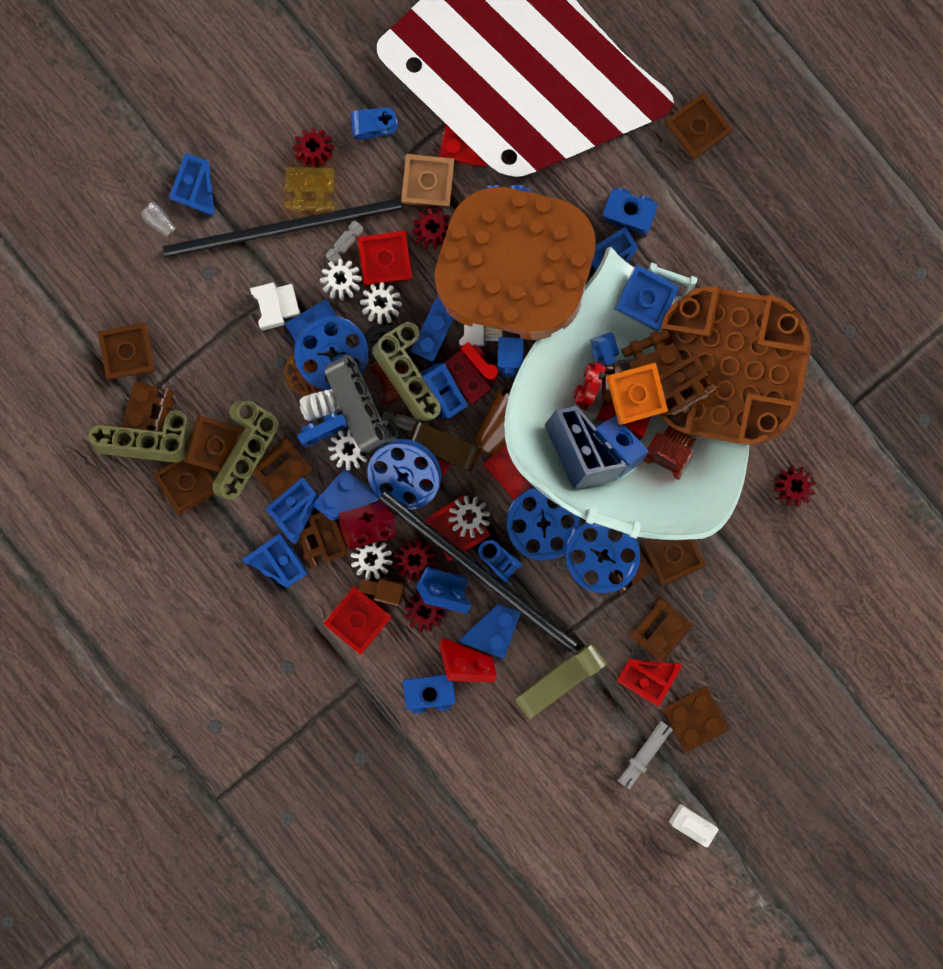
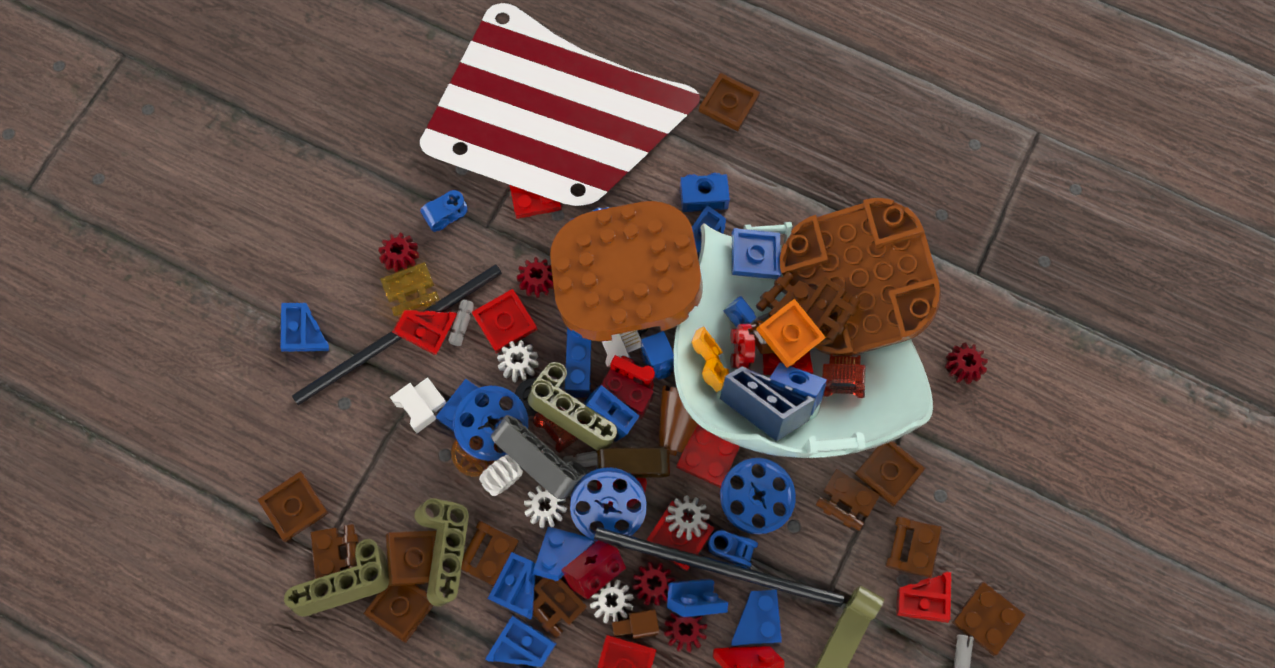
camera: 25 degrees left, 15 degrees down
(157, 218) = (277, 373): clear cone -> none
(308, 234) = (424, 328): none -> red wing
(315, 433) = (506, 504): blue plate -> none
(332, 283) = (473, 346): white gear -> none
(427, 181) = (514, 239): medium nougat plate -> none
(557, 374) = (713, 371): none -> light orange plate
(606, 567) = (835, 511): blue wedge -> none

